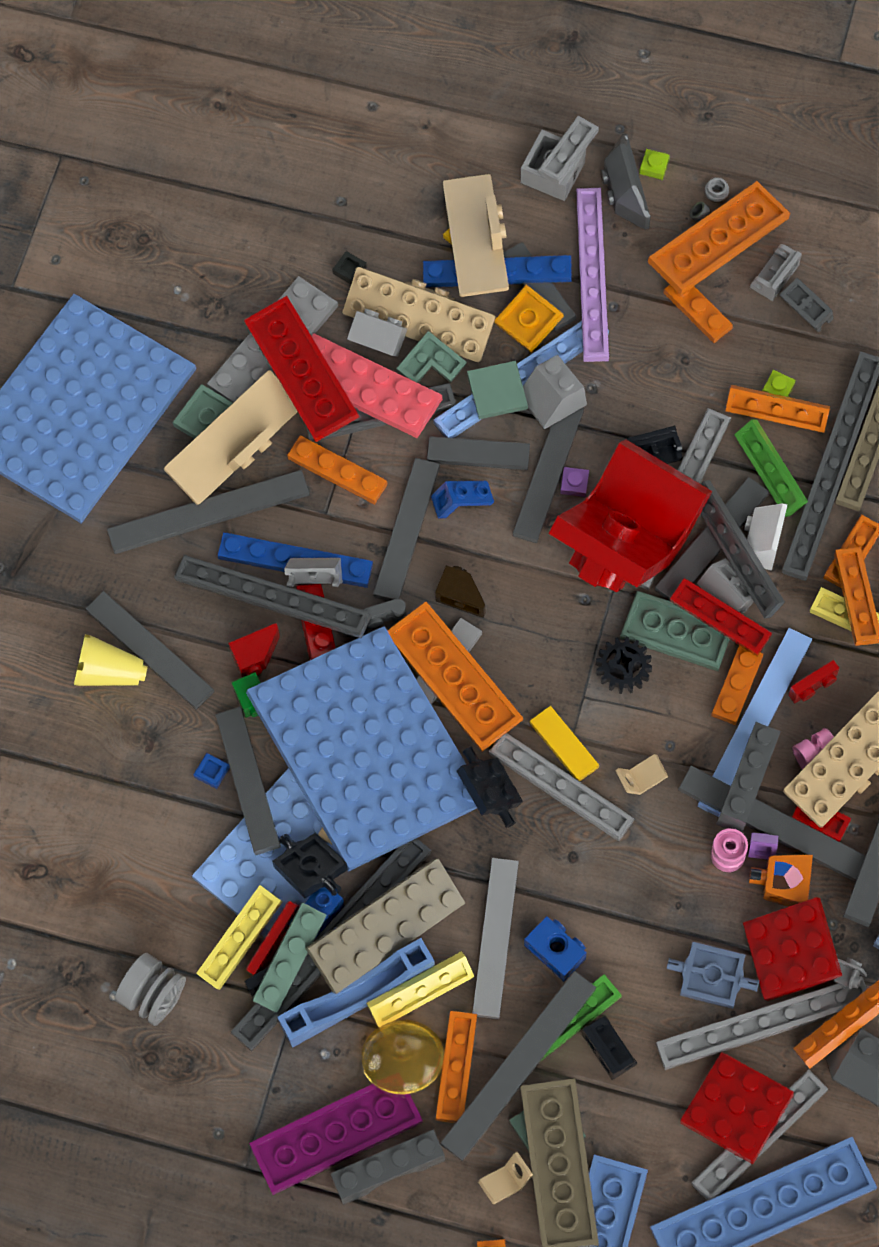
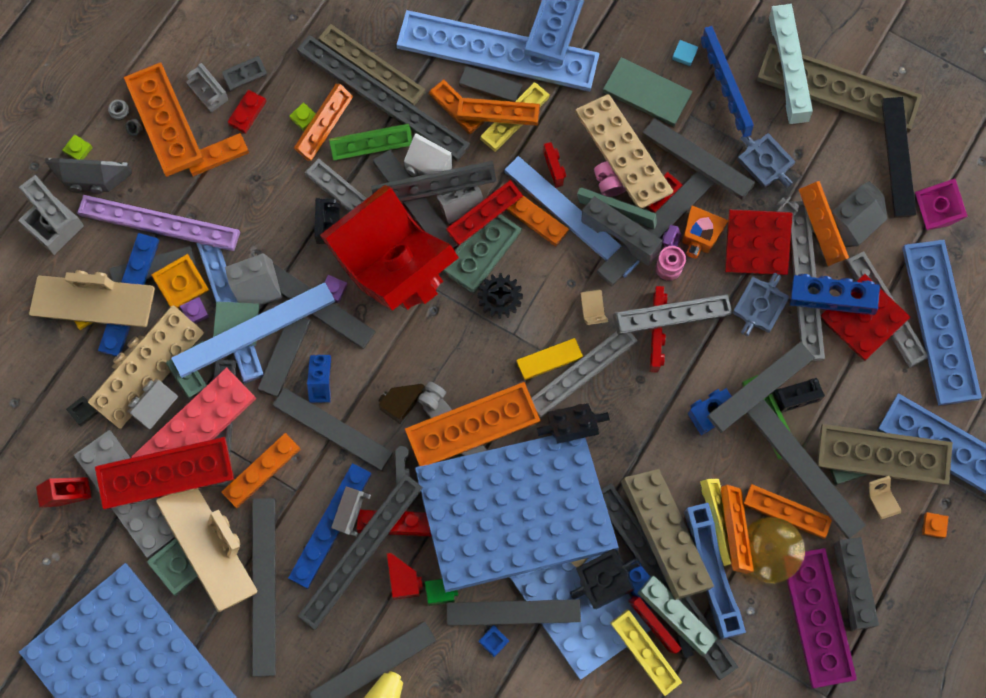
camera: 80 degrees left, 5 degrees up
(255, 279) = (63, 491): none -> red slope
(414, 1007) = (736, 529): none -> orange plate
(475, 621) = (431, 396): none -> light grey wheel
(494, 409) = (253, 330): none -> light blue tile
(495, 938) = (692, 454): light grey tile -> none
(501, 345) = (194, 310): none -> medium lavender plate
(599, 992) = (760, 387): none -> dark grey tile
(630, 859) = (657, 337): none -> red plate
(661, 867) = (672, 314): none -> tile
(750, 1097) = (824, 300): none -> blue brick
(763, 324) = (246, 111): none -> red plate
(779, 768) = (632, 212): none -> sand green tile

